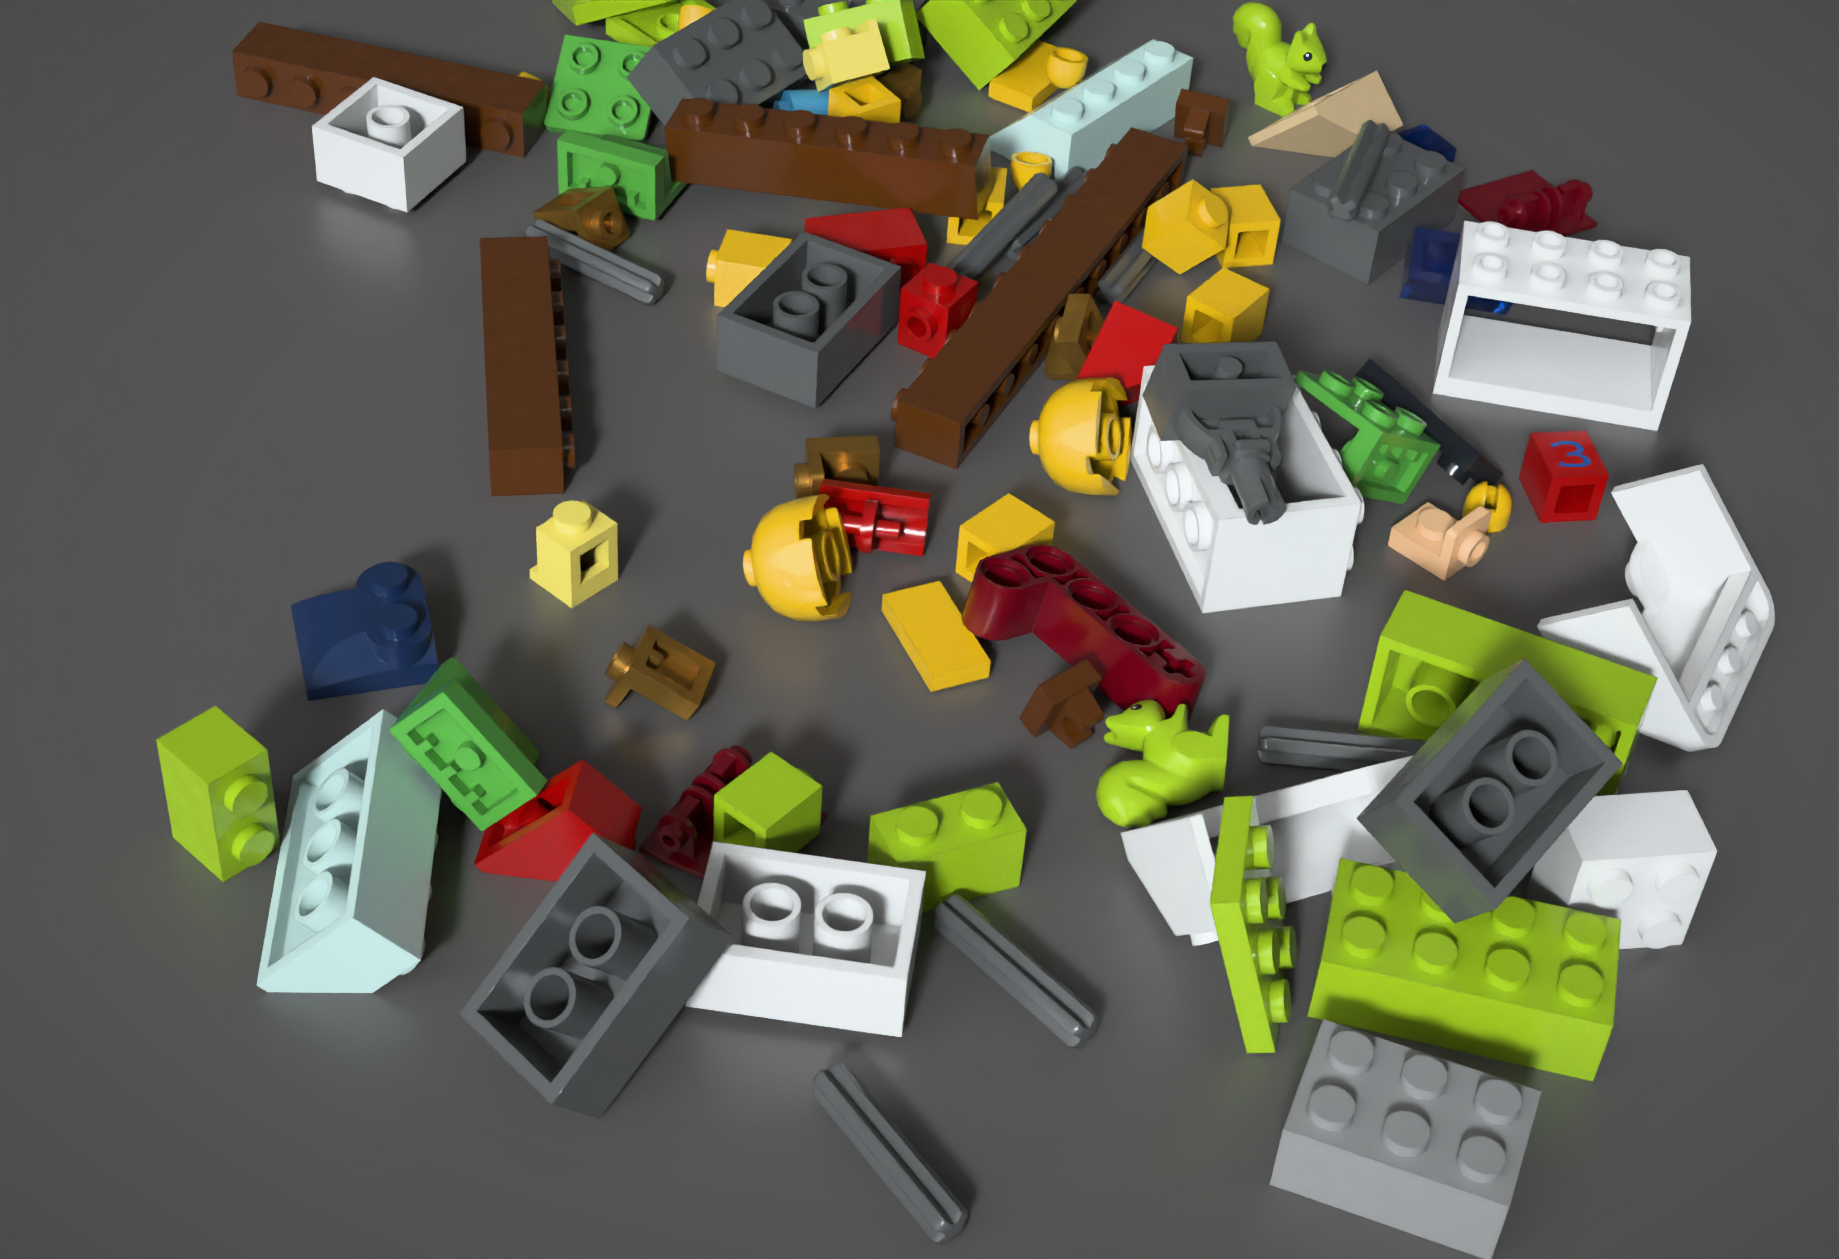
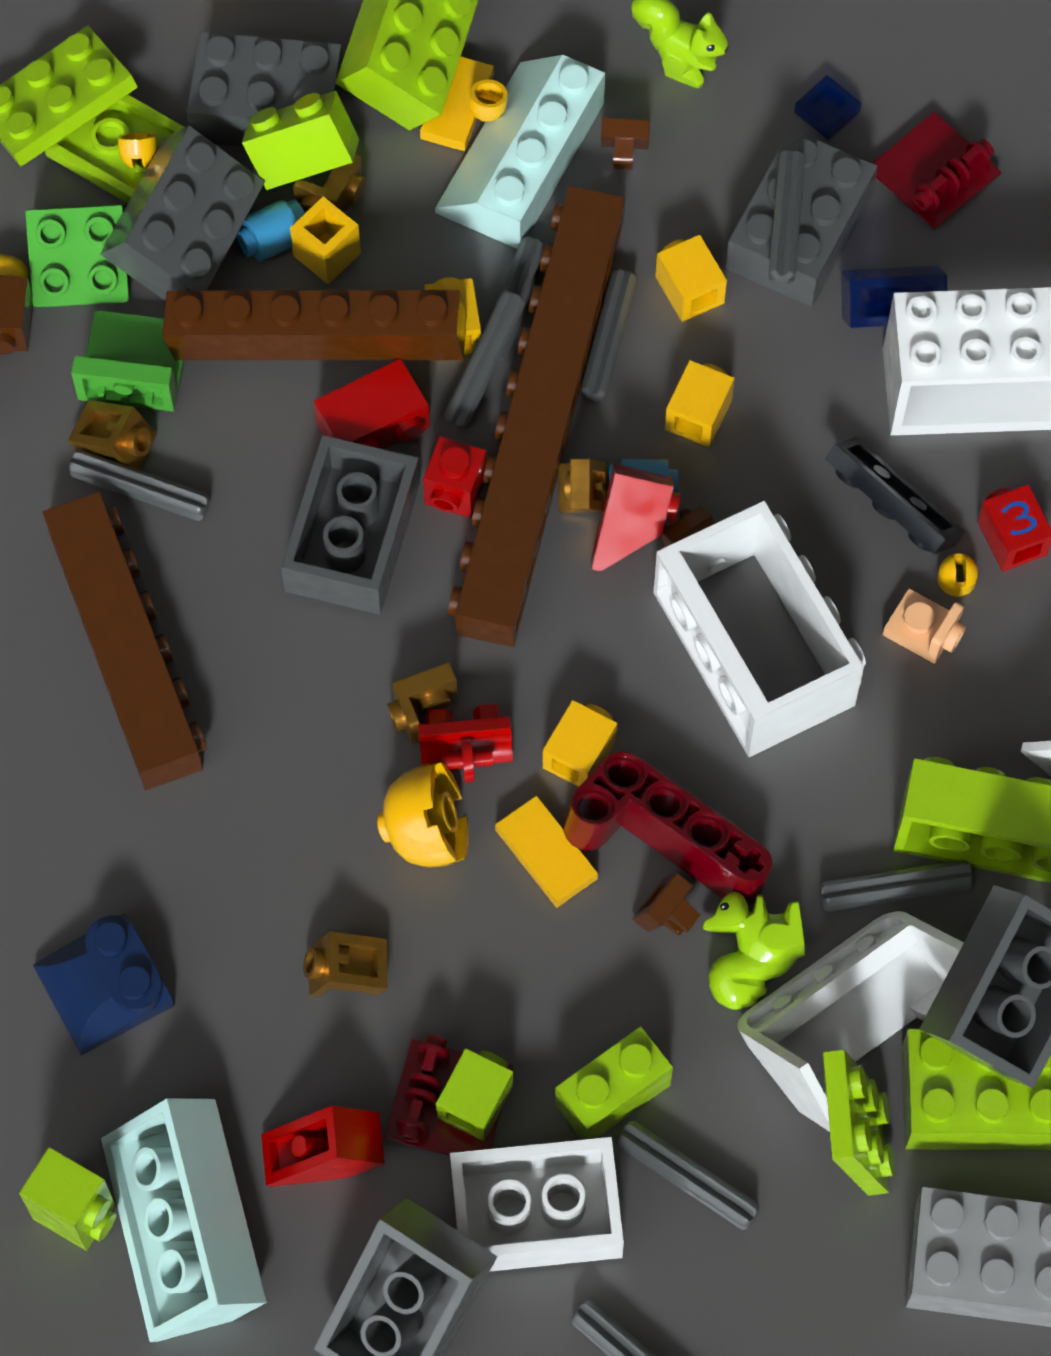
camera: 10 degrees left, 25 degrees up
(469, 746) = (234, 1094): bright green bracket -> none
(573, 538) = (242, 856): light yellow brick -> none
(740, 261) = (278, 466): yellow brick -> none
(846, 56) = (296, 187): light yellow brick -> none
(1026, 165) = (487, 249): yellow hinge -> none
(1083, 437) = (614, 605): yellow cylinder -> none
(1186, 227) = (646, 309): yellow brick -> none
(1228, 411) = (744, 623): dark grey brick -> none
(1331, 121) = (743, 100): tan slope -> none
(1390, 445) = (851, 540): bright green bracket -> none

